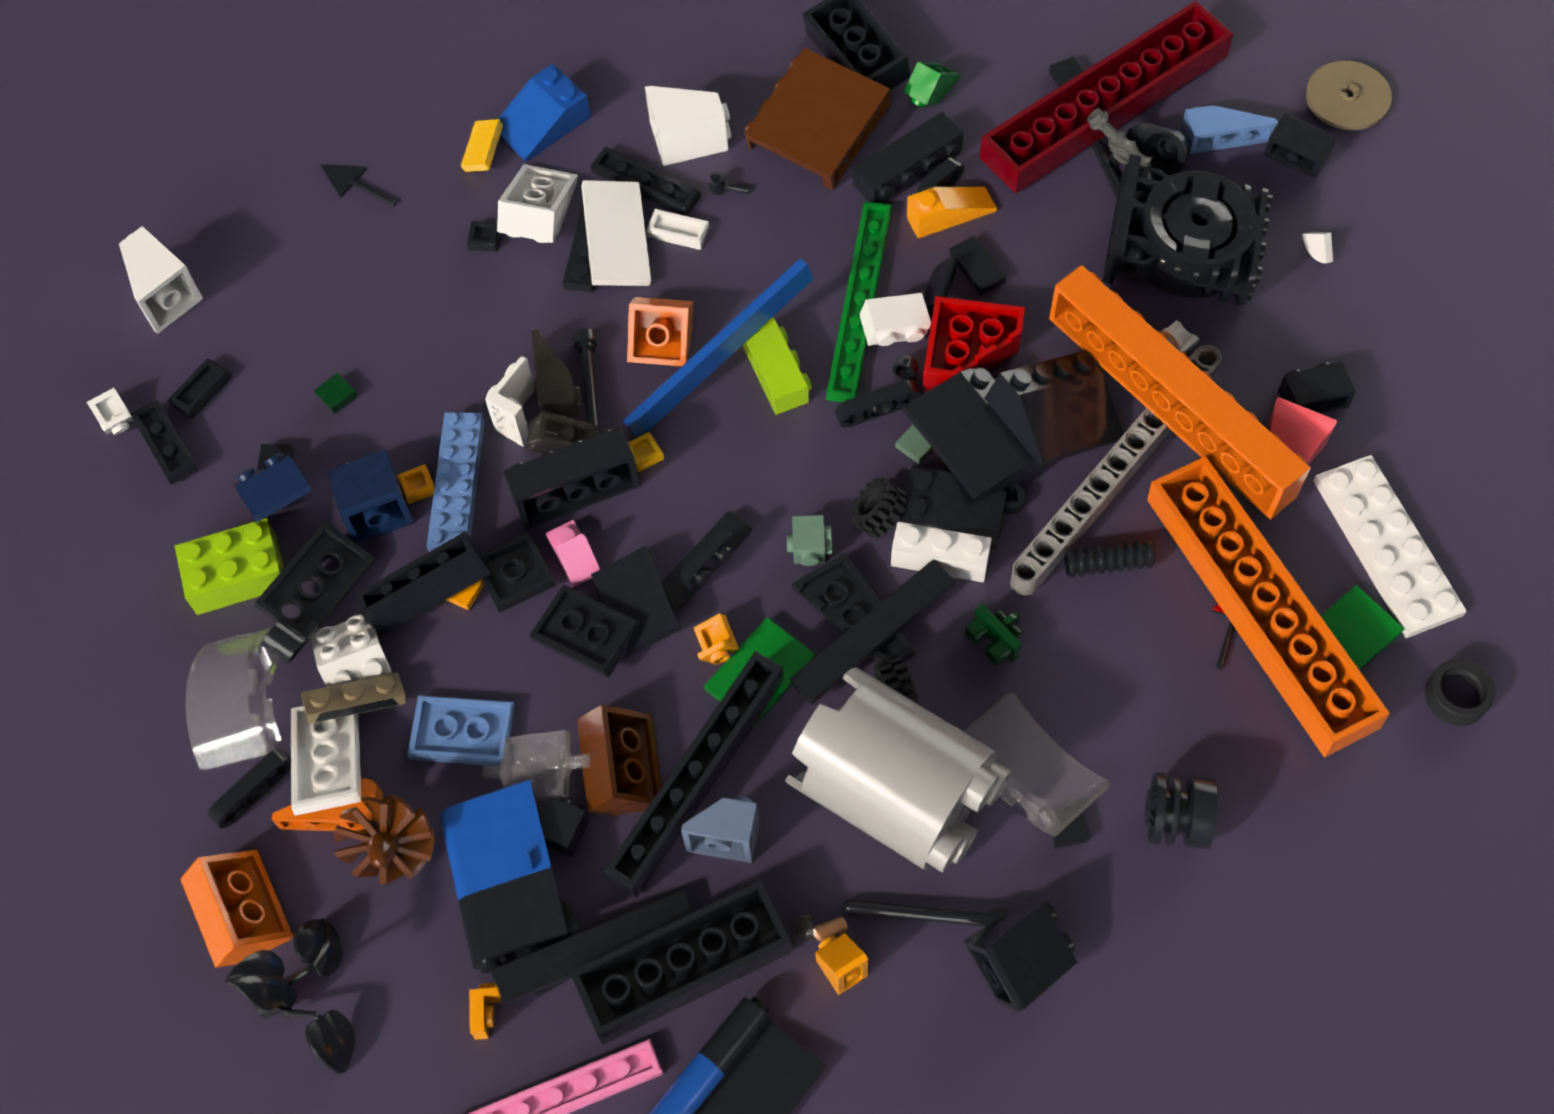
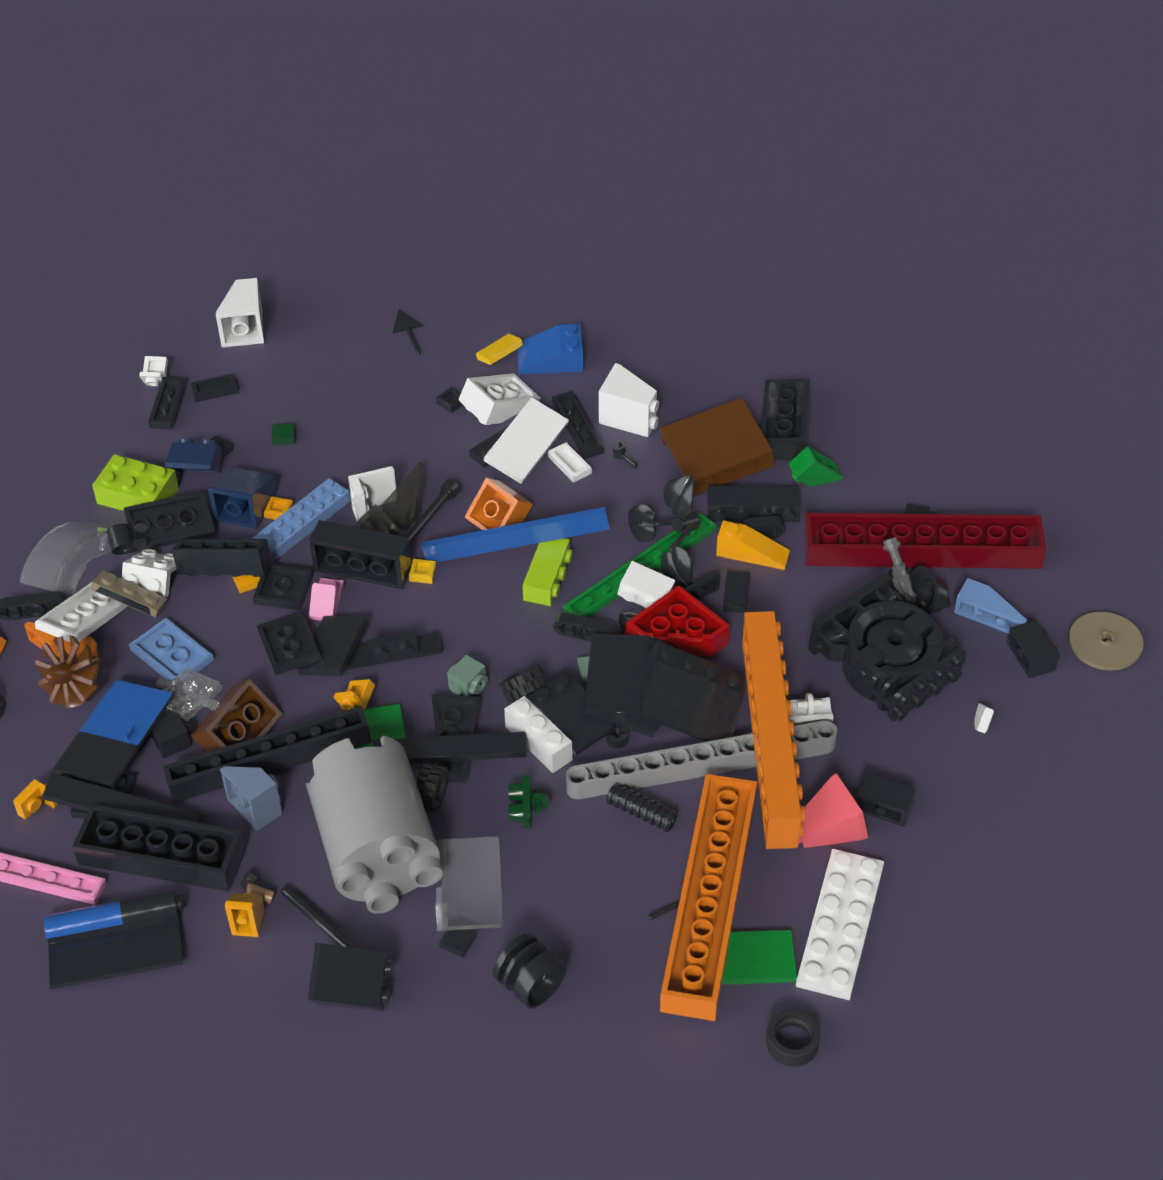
camera: 35 degrees right, 15 degrees down
(874, 203) = (679, 497): none -> black plant

